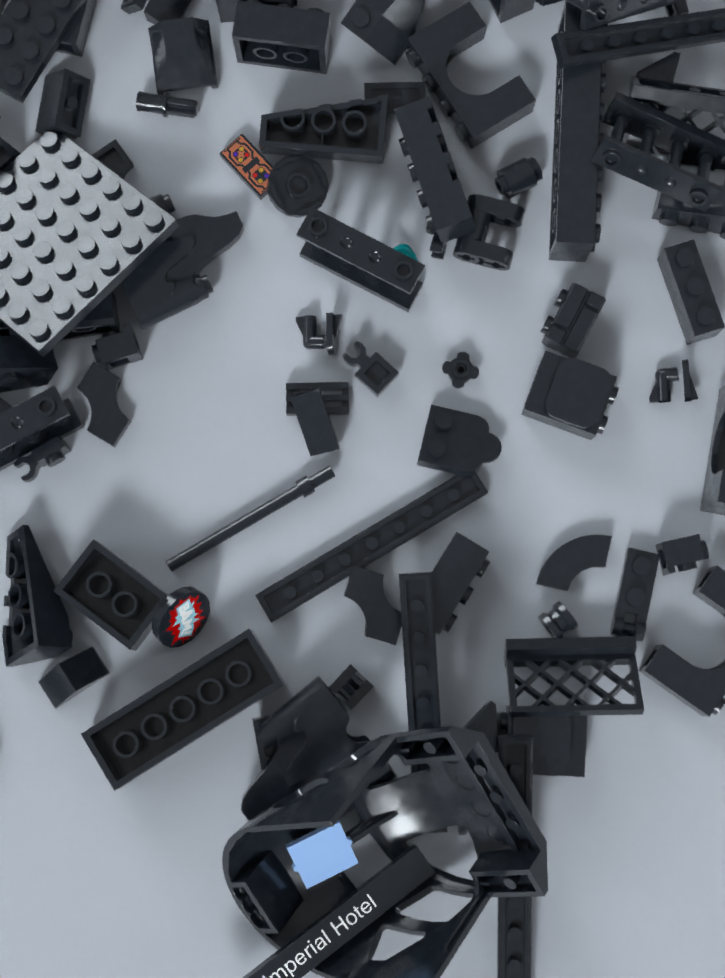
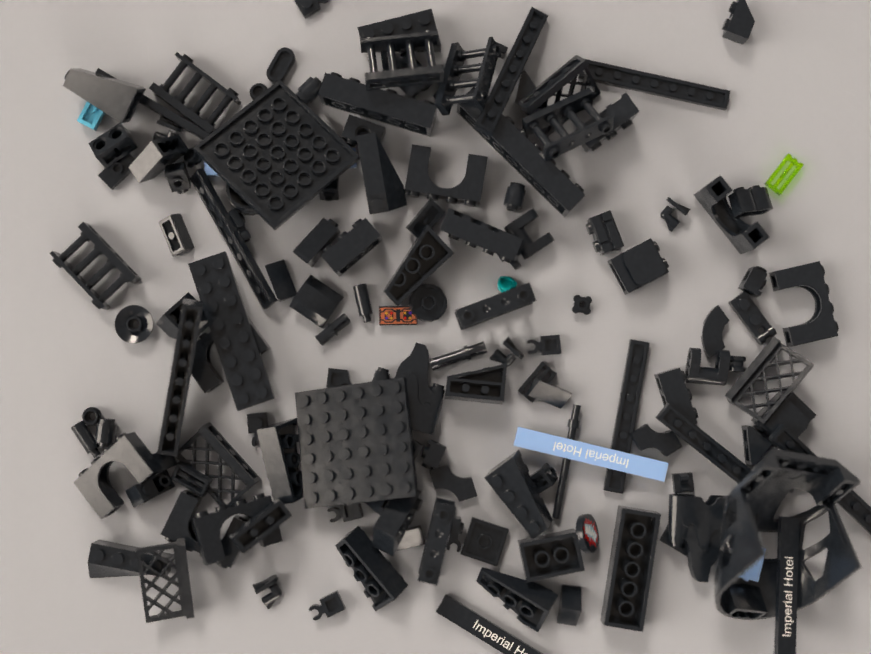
camera: 55 degrees left, 5 degrees up
(63, 103) = (288, 378): black panel -> none
(64, 504) = (484, 541): none -> black tile
(158, 492) = (520, 494): none -> black wedge
(202, 506) = (544, 477): none -> black bracket
(231, 111) = (363, 301): none -> black cylinder
(248, 328) = (478, 386): none -> black wedge
(275, 282) = (458, 355): none -> black pin
(285, 537) = (590, 454): none -> light blue tile
(457, 442) = (614, 336): black plate -> none
(512, 598) = (707, 375): none -> black connector
(690, 292) = (639, 168): black brick -> none

